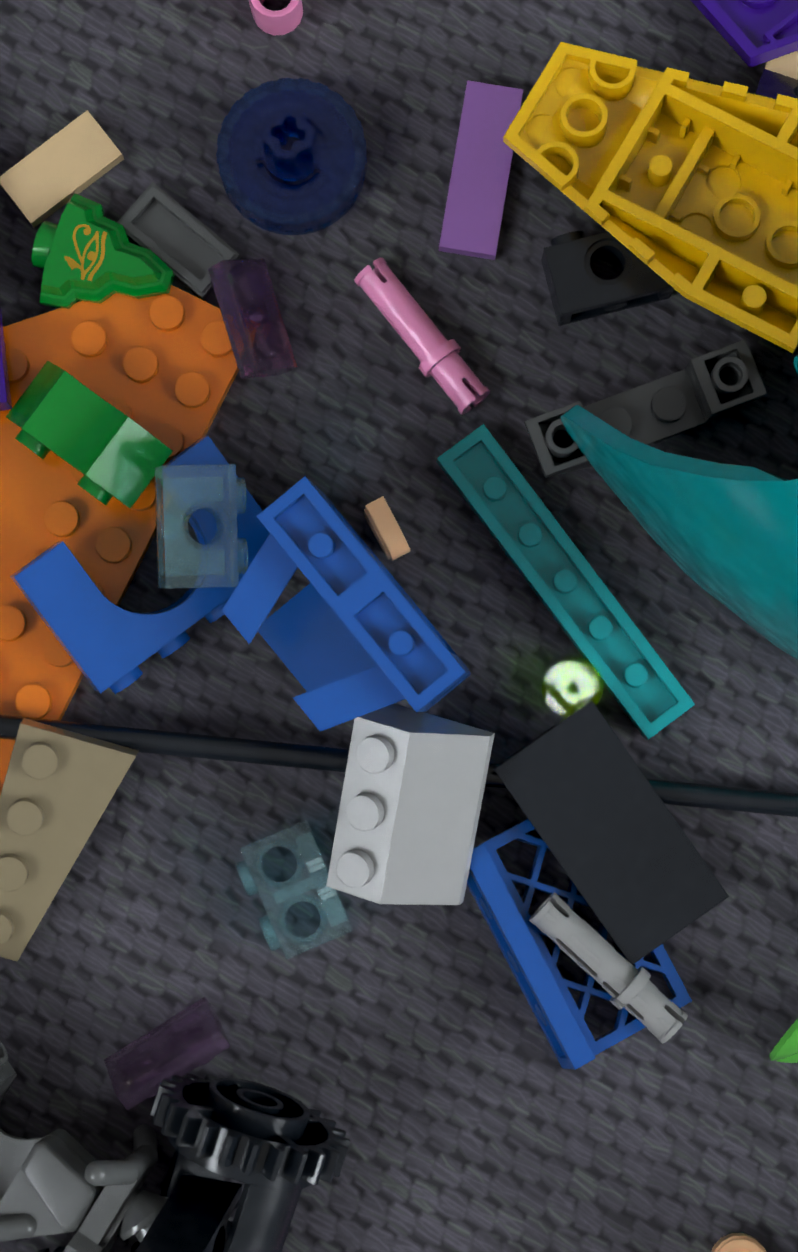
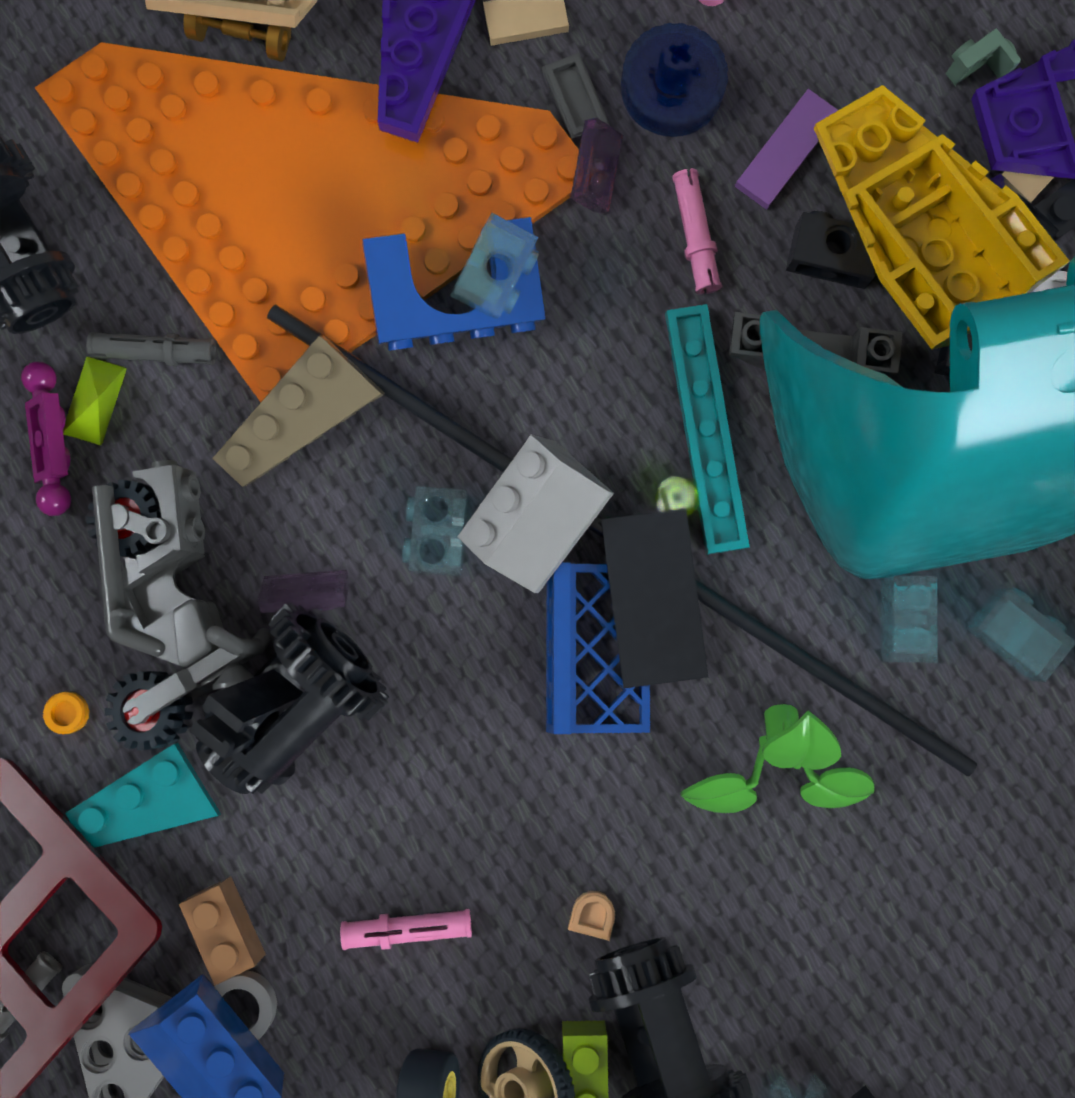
camera: 25 degrees right, 0 degrees up
(87, 434) = (456, 180): green brick -> none
(93, 259) = (516, 80): green rock -> none
(351, 630) = (560, 386): blue piece -> none
(386, 529) = (611, 337): light nougat tile -> none
(615, 974) = (608, 683): light grey pin -> none

